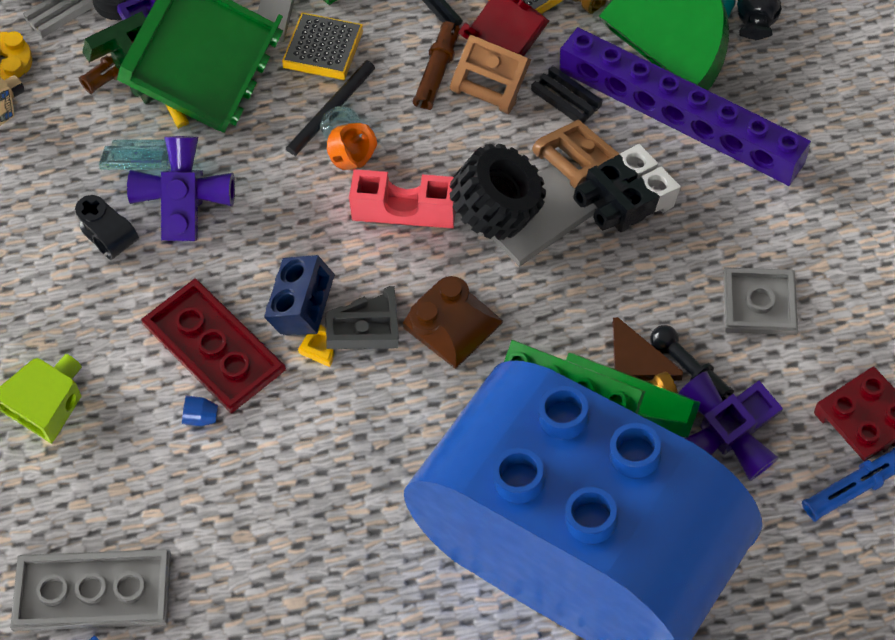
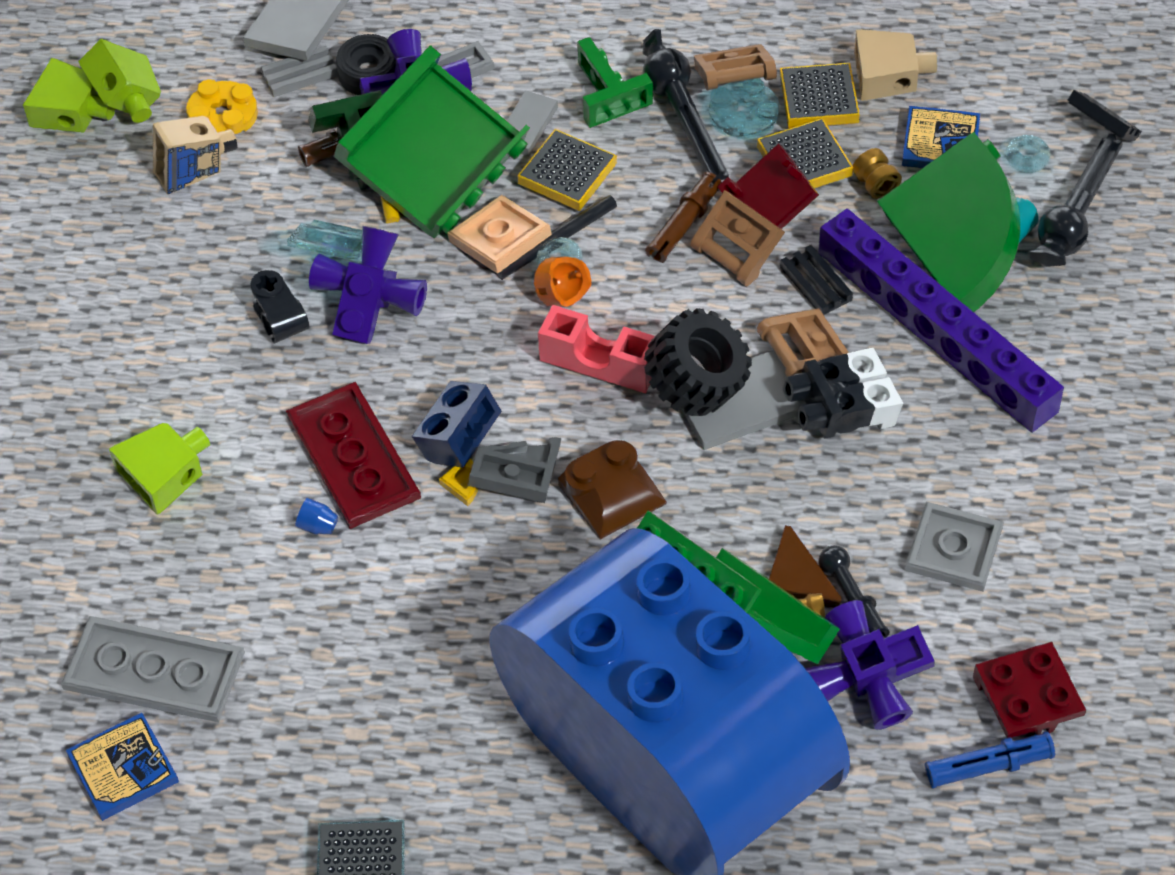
camera: 15 degrees right, 5 degrees down
(282, 116) = (499, 233): none -> light nougat plate

